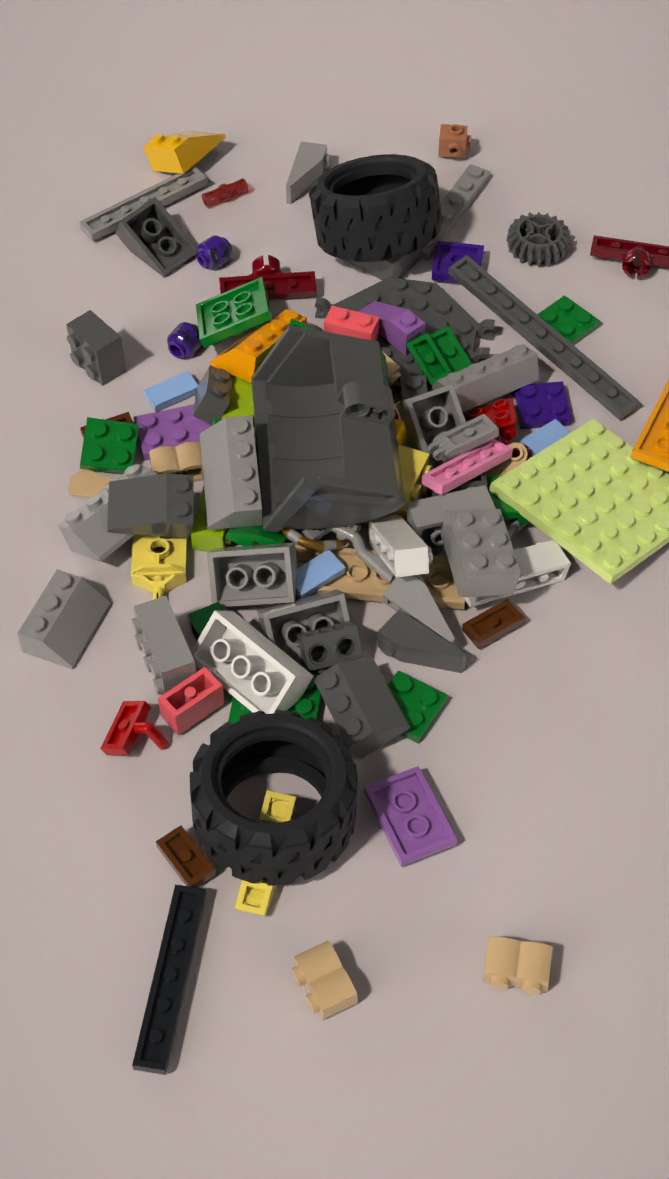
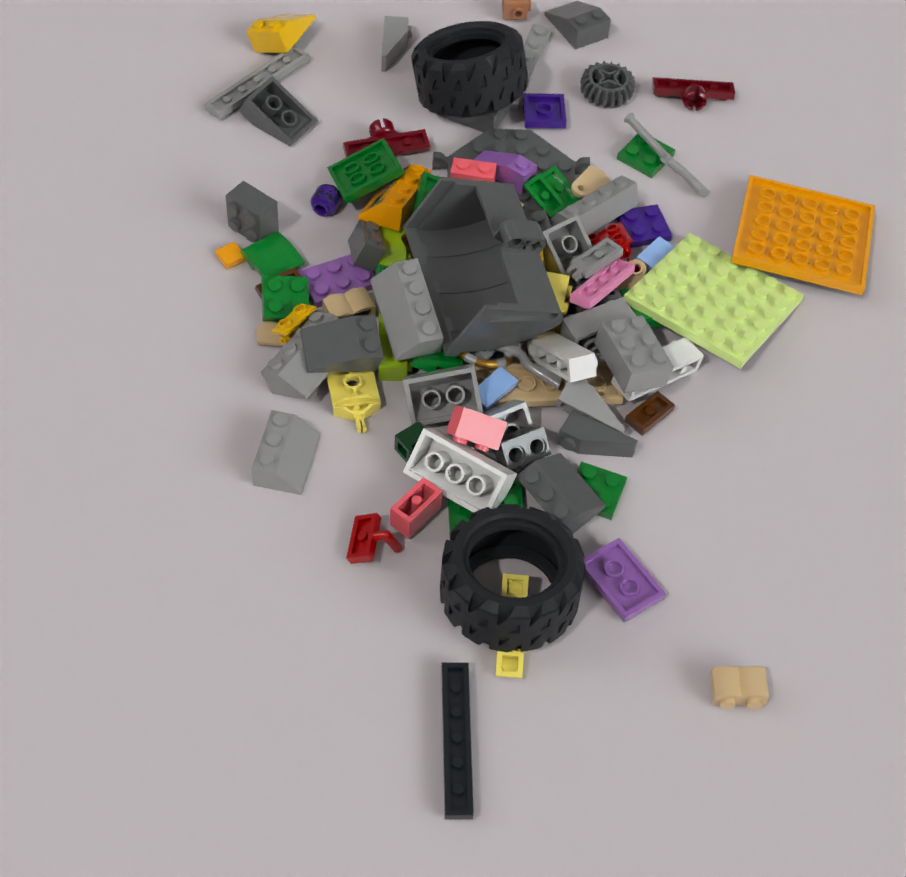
camera: 15 degrees left, 0 degrees up
(65, 391) = (229, 255): none -> light orange tile
(101, 476) = (288, 326): none -> yellow hinge
(109, 396) = (272, 255): none -> green slope
(162, 644) = (382, 464): light grey brick -> none
(171, 391) = (324, 245): light blue tile -> none
(185, 857) = (443, 639): reddish brown plate -> none
(214, 252) = (331, 120): dark purple head -> none
(225, 192) = (326, 66): clear red pin -> none
(277, 618) = (477, 428): none -> brick
(325, 980) = (586, 722): tan brick -> none
(485, 347) = (589, 182): none -> tan piece
(524, 167) = (580, 23): none -> dark grey slope
(544, 337) = (632, 167): dark grey plate -> none
(585, 330) = (665, 156): none -> light grey piece

